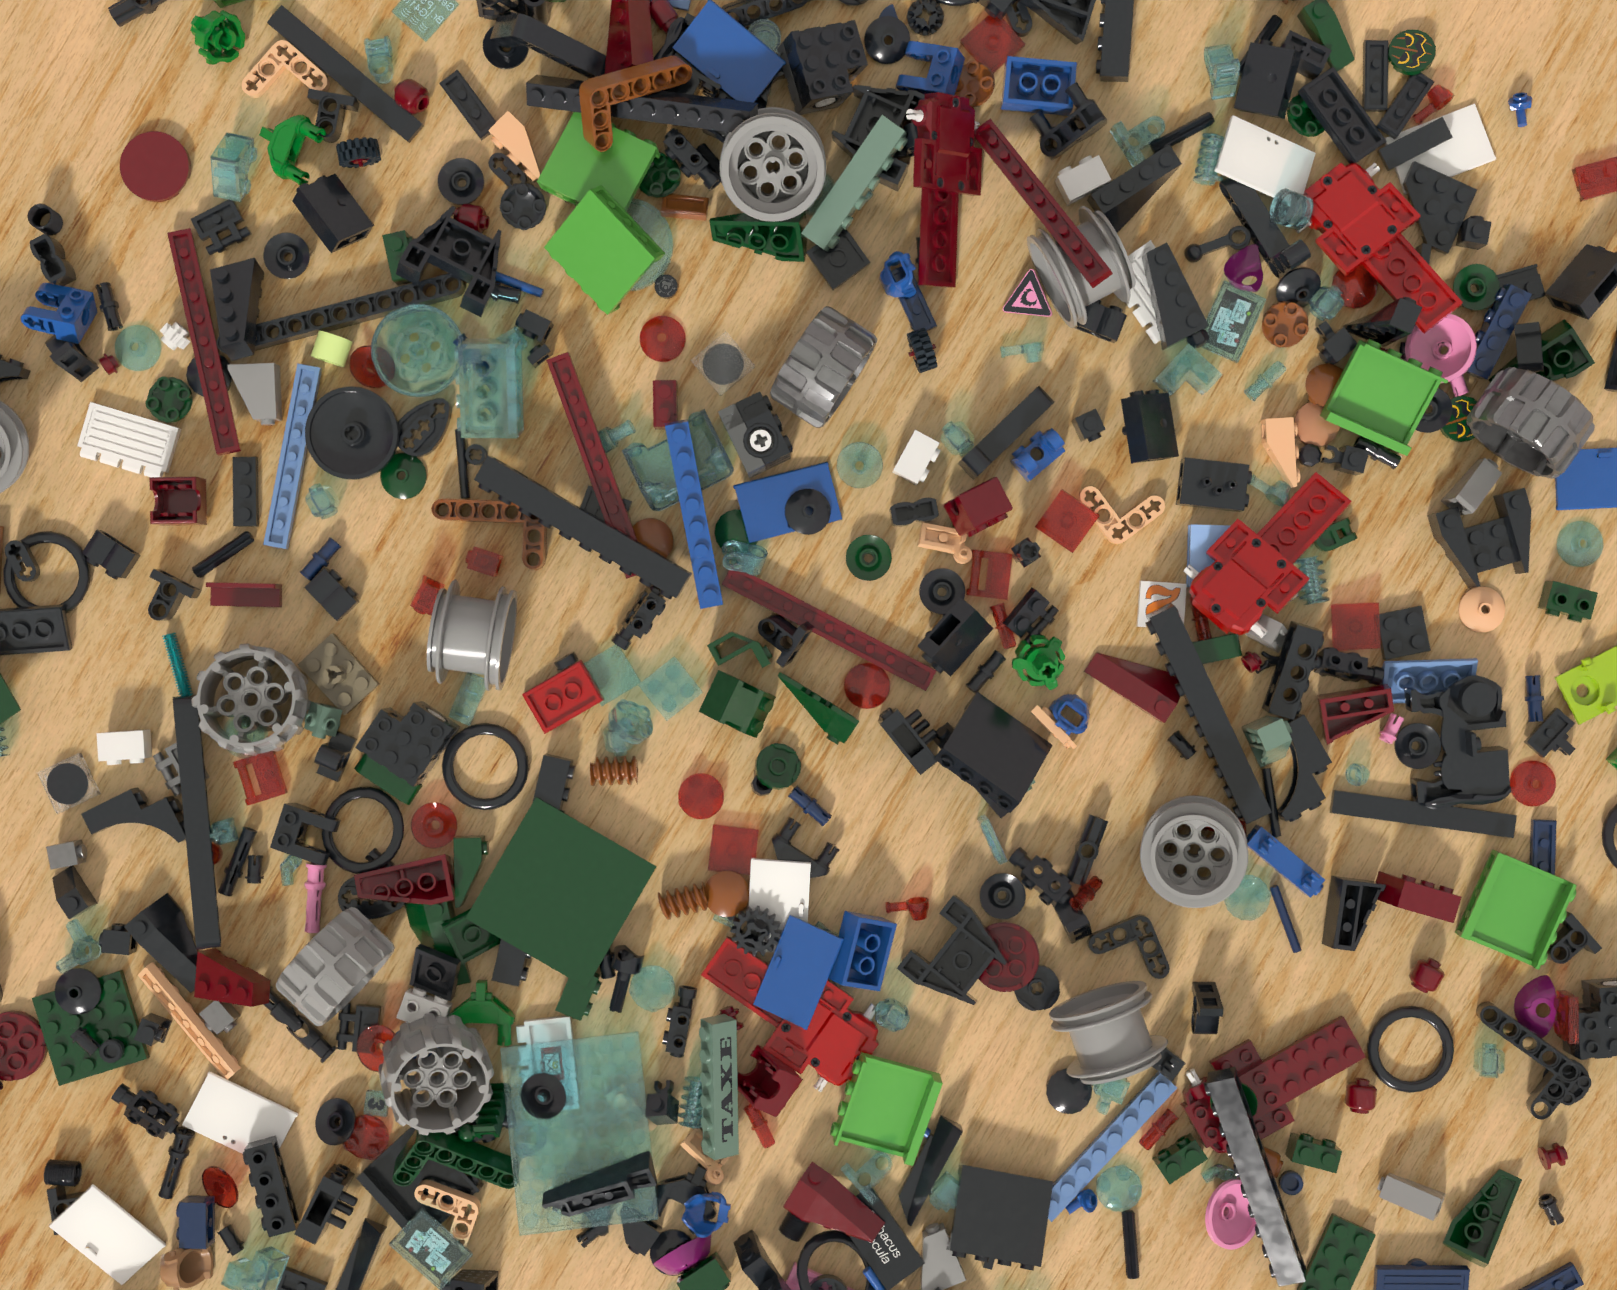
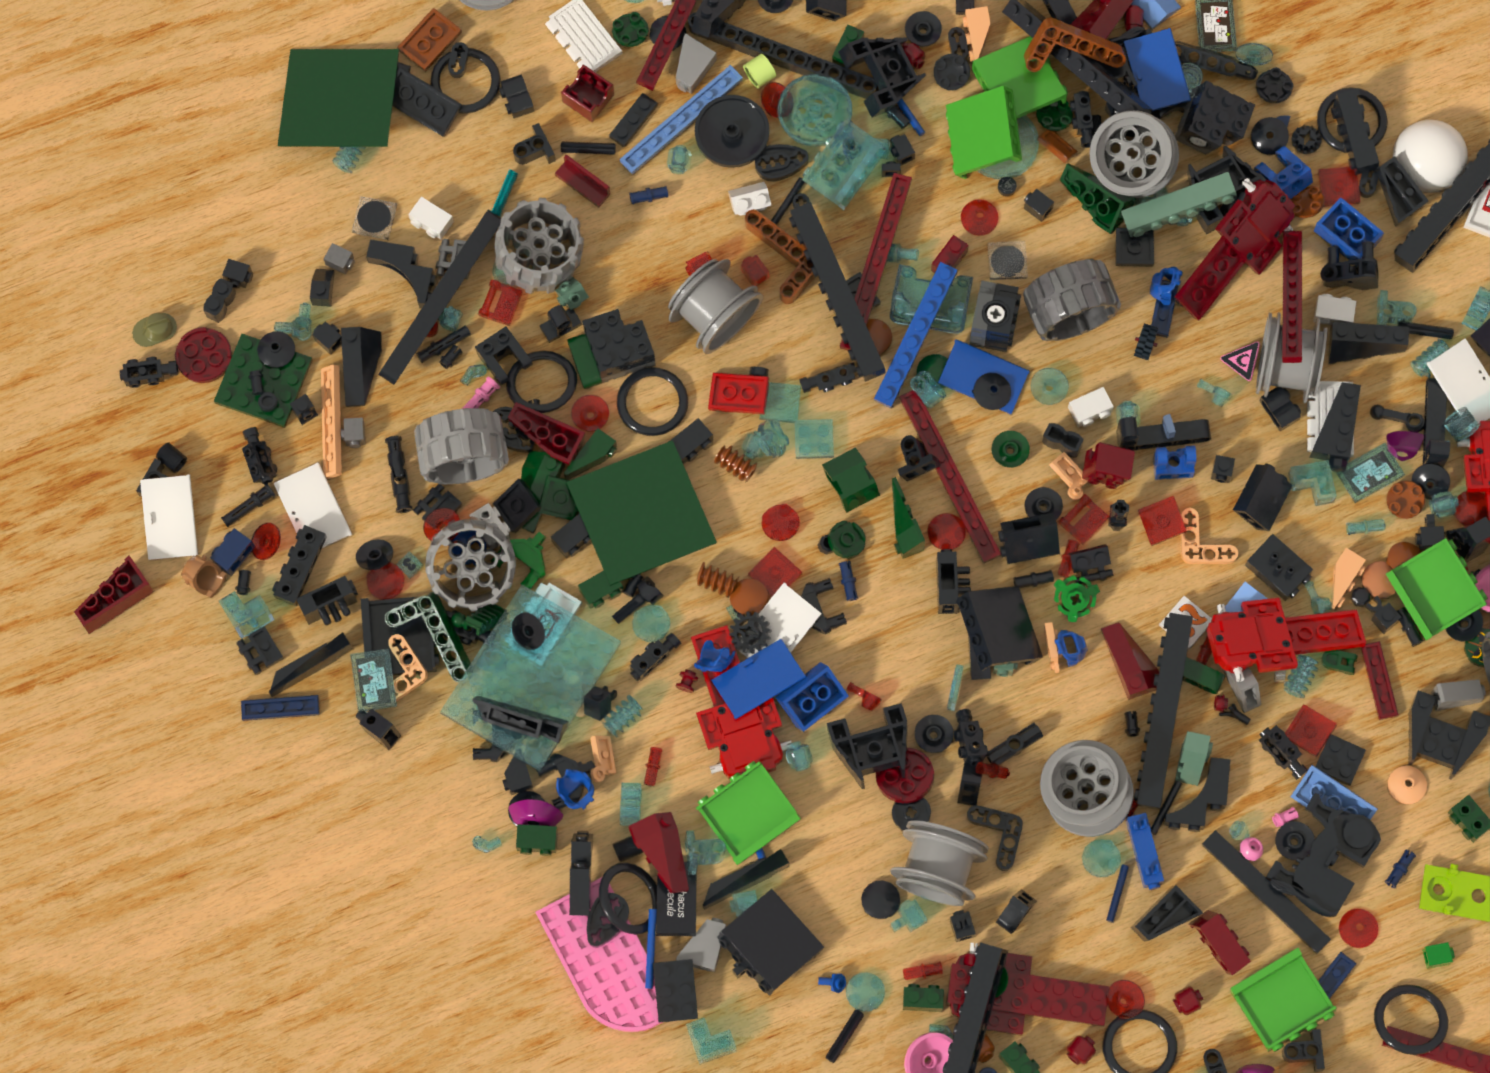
camera: 45 degrees right, 15 degrees down
(227, 981) = (379, 412): dark red wedge -> none
(332, 593) = (639, 221): black brick -> none
(338, 674) = (603, 275): dark tan plate -> none
(411, 484) = (735, 174): dark green dish -> none
(423, 490) = (749, 198): none -> white brick
(468, 699) = (675, 349): clear light blue slope -> none
(711, 284) = (1038, 204): none -> black brick
(719, 1086) = (648, 713): sand green brick -> none
(740, 979) = (714, 659): none -> blue helmet
(762, 653) = (876, 438): dark green piece -> none
(767, 1179) = (630, 803): none -> clear light blue brick
(769, 1083) = (683, 738): dark red piece -> none
(1008, 424) = (1168, 426): none -> sand blue tile
(1109, 1142) = (879, 956): medium blue plate -> none
(1289, 658) = (1265, 703): black brick -> none
(1352, 709) = (1266, 780): dark red wedge -> none
(1377, 1014) = (1131, 993): none -> clear red dish
(1379, 789) = (1251, 848): none -> bright pink plate
(1386, 526) = (1379, 681): none -> dark red tile
(1552, 735) = (1395, 902): black hinge -> none

